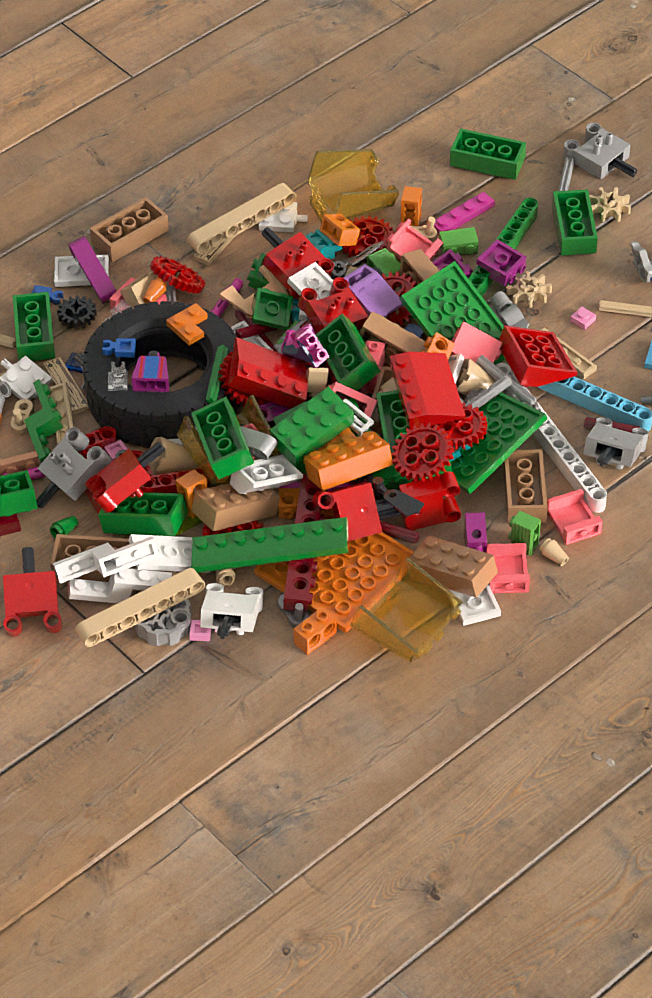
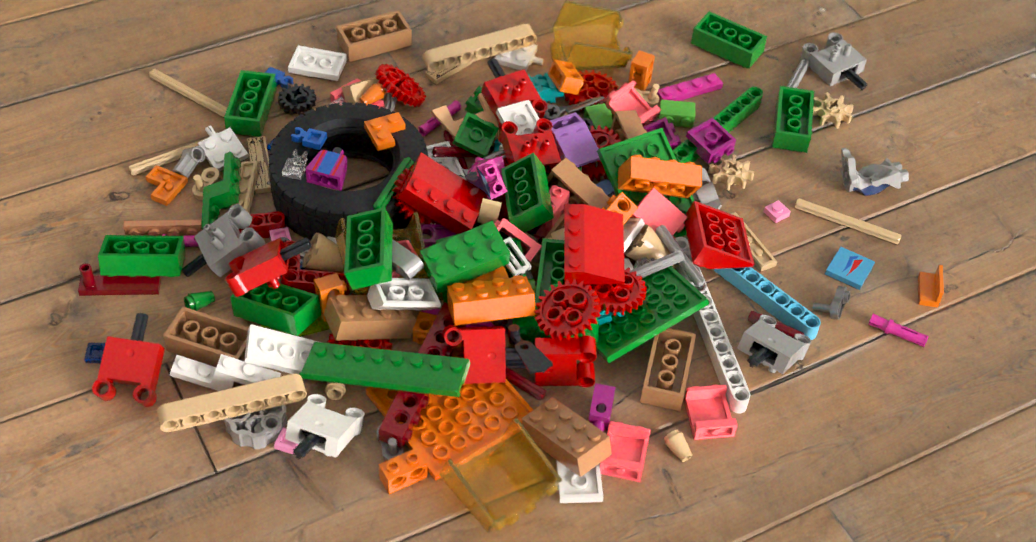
camera: 10 degrees right, 0 degrees up
(92, 268) = (324, 61): magenta beam -> none
(106, 559) = (214, 345): white bracket -> none
(473, 308) = (666, 177): none -> brick
(525, 530) = (653, 416): bright green brick -> none

